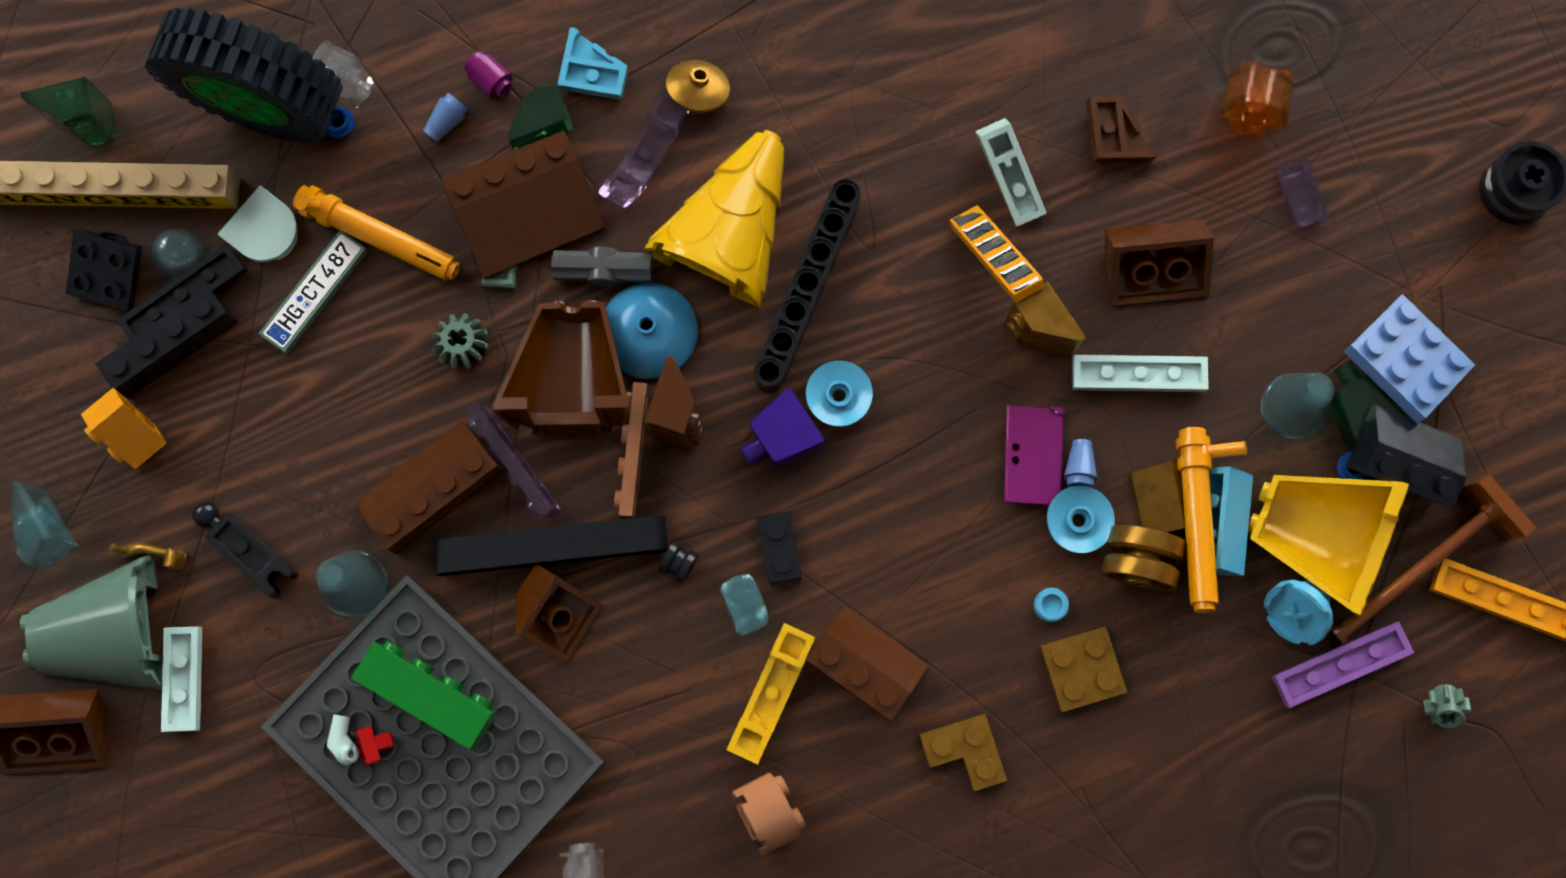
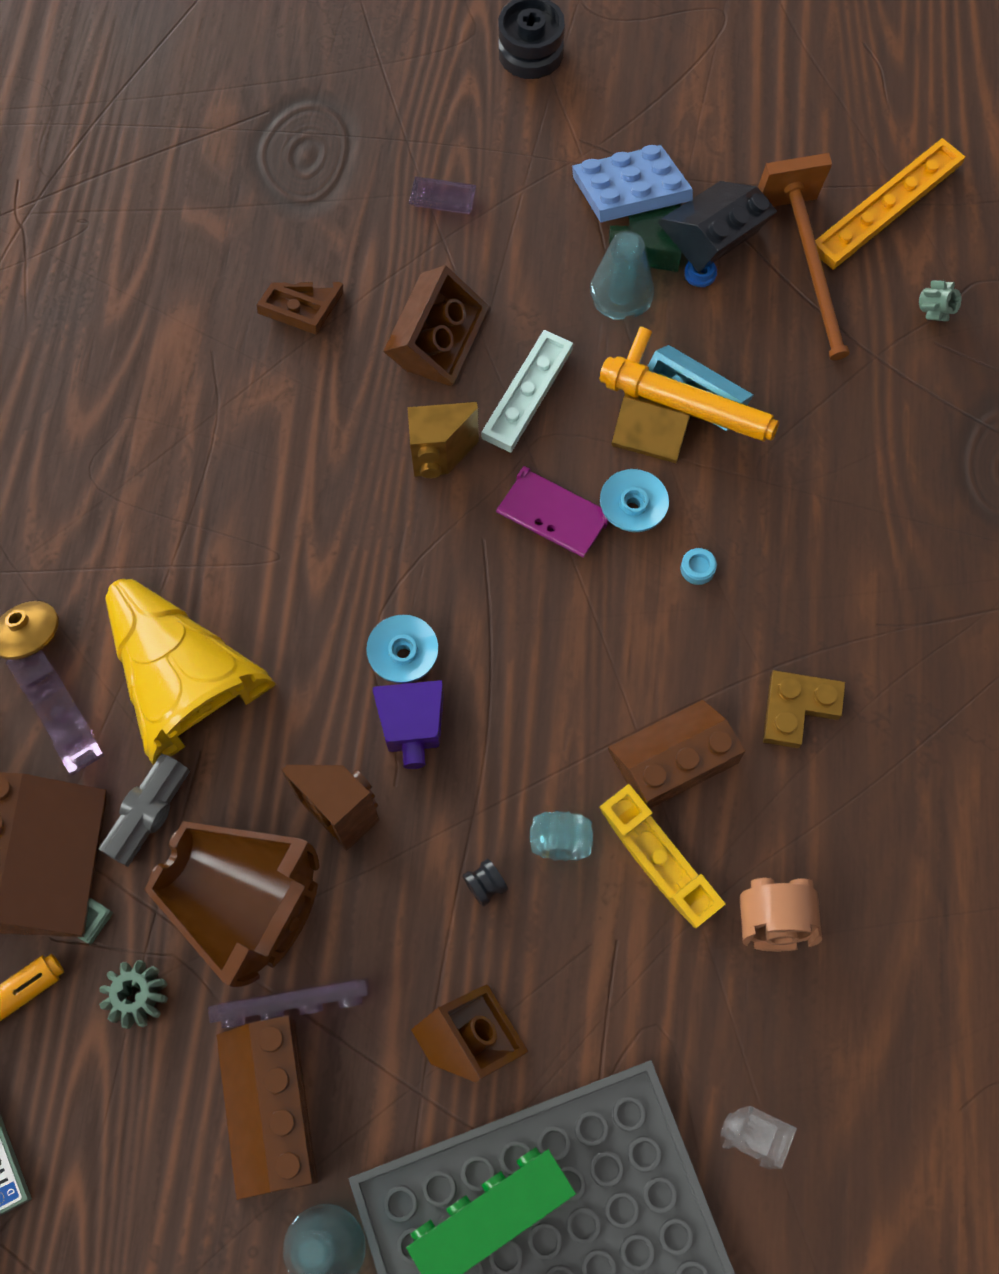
camera: 65 degrees left, 10 degrees down
(550, 545) = (397, 1010): black beam -> none
(630, 465) = (362, 881): nougat plate -> none
(673, 330) = (261, 796): dark azure dish -> none
(779, 547) = (519, 780): black plate -> none
(808, 270) = (287, 640): black beam -> none
(997, 254) = (354, 442): tile -> none
(1011, 171) = (281, 400): light aqua slope -> none
(1081, 464) = (584, 477): medium blue cone -> none
(1083, 669) = (771, 568): pearl gold plate -> none
(1143, 557) = (698, 461): pearl gold wheel -> none
(1257, 98) = (342, 180): clear orange brick -> none
(1299, 611) = (807, 367): medium azure tile -> none
(1330, 530) = (748, 308): yellow cone -> none
(1342, 664) = (866, 362): medium lavender plate -> none

